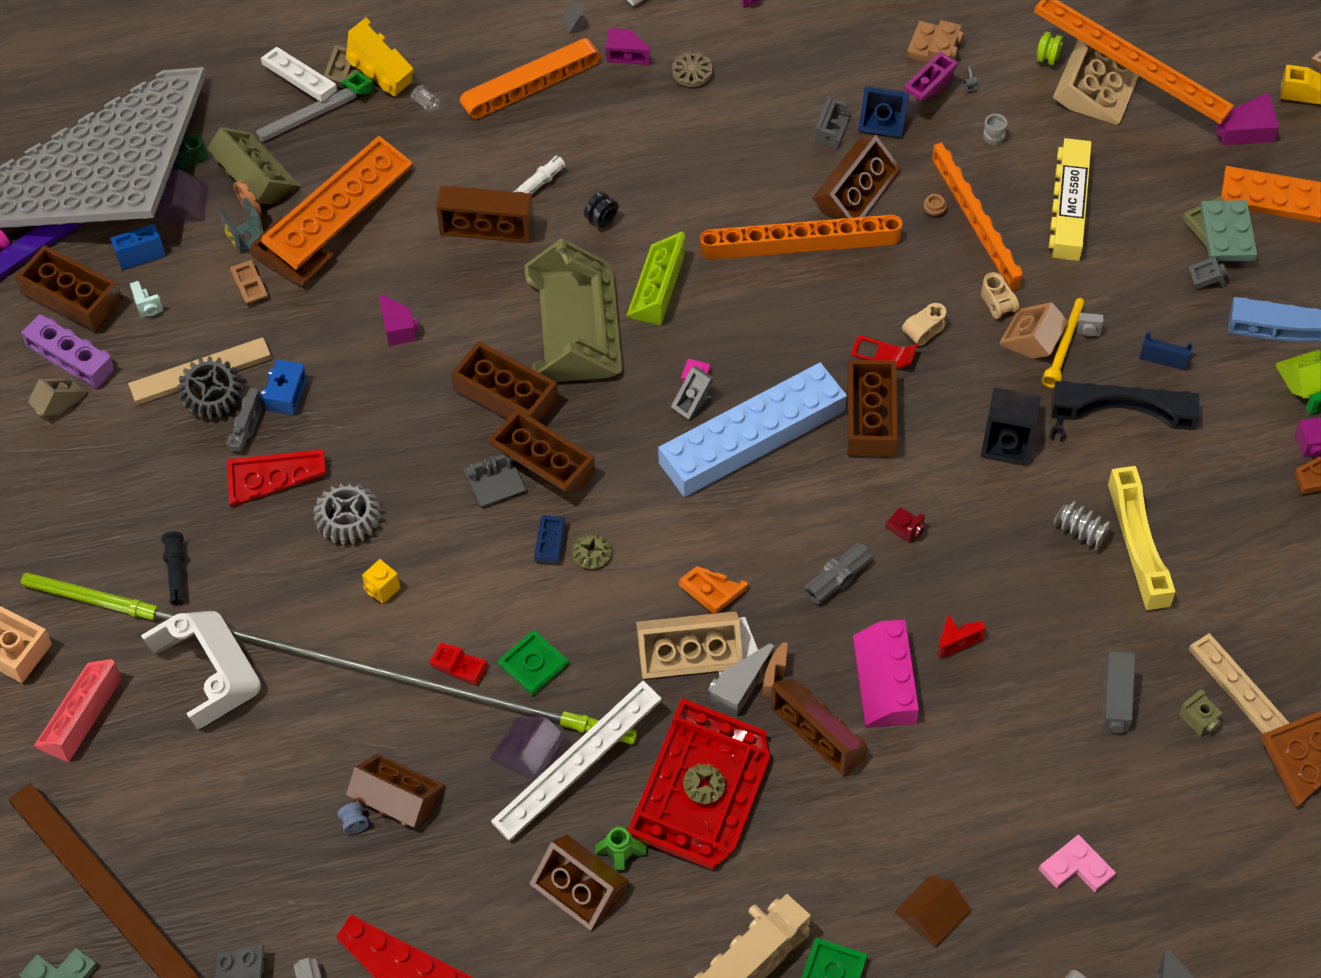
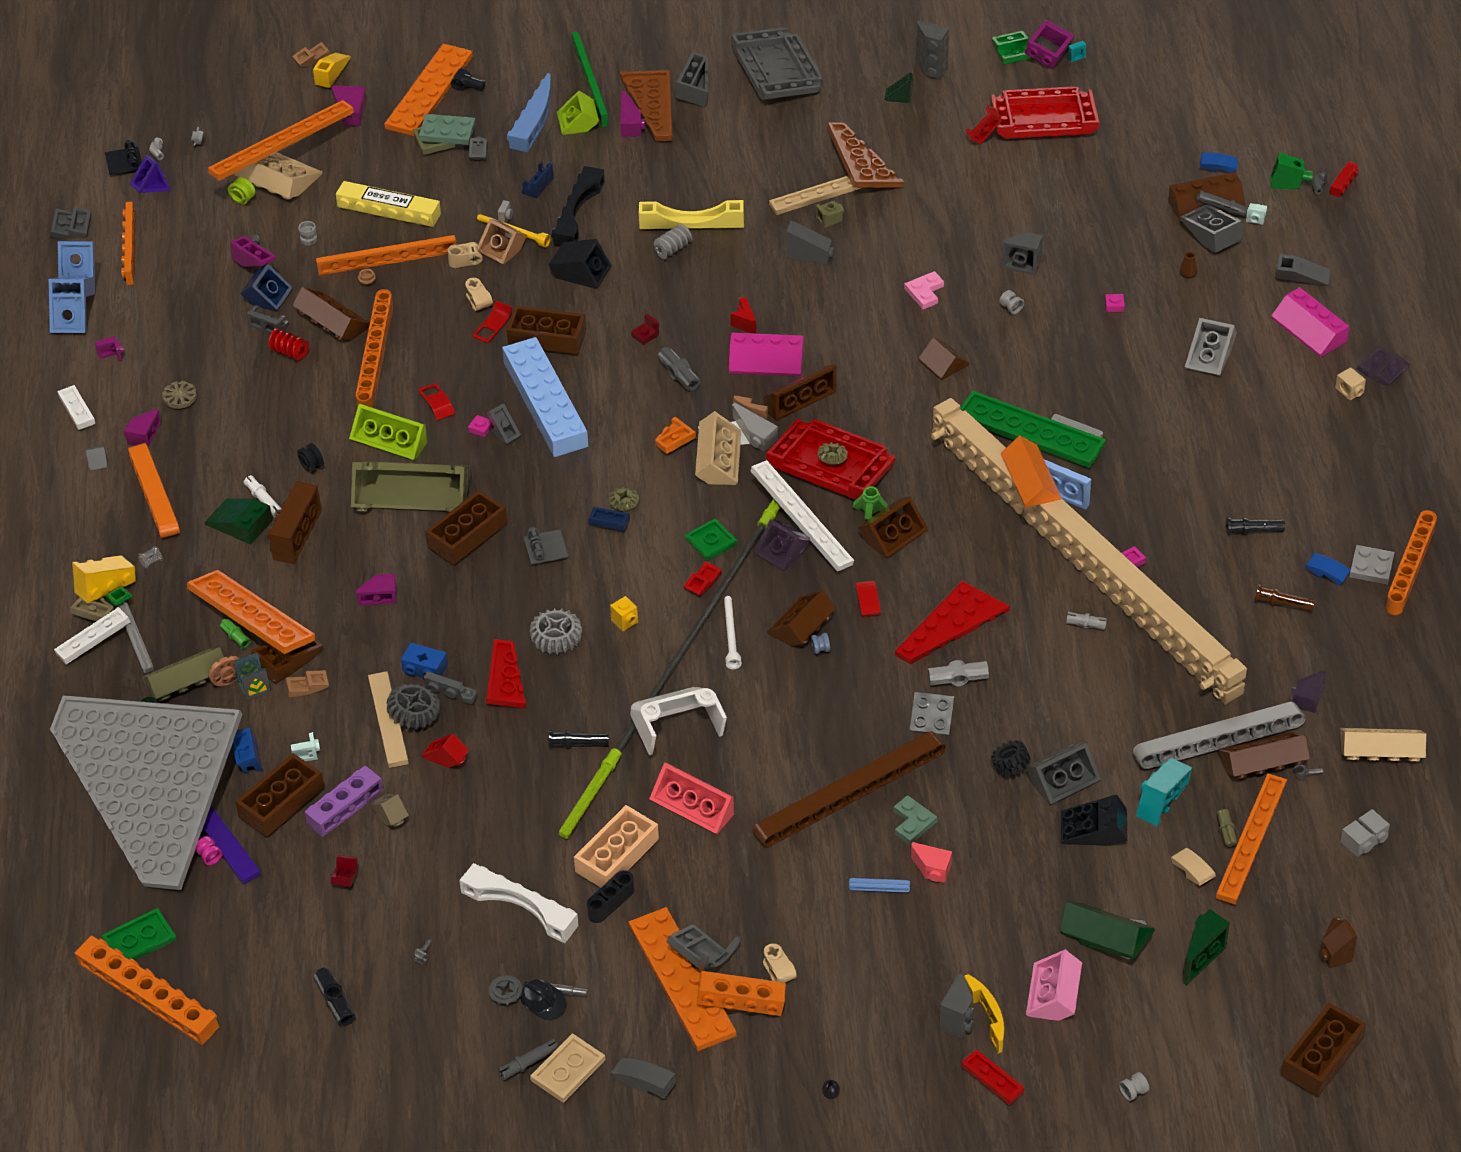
camera: 80 degrees left, 10 degrees down
(144, 435) = (446, 751): none -> red slope
(321, 719) = (733, 659): none -> white piece
(444, 866) = (868, 599): none -> red slope
(496, 165) = (241, 518): none -> dark green slope
(543, 451) = (535, 507): reddish brown slope -> none
(727, 319) = (438, 402): none -> red piece
(791, 149) = (288, 344): none -> red piece
(932, 38) = (207, 253): medium nougat plate -> none

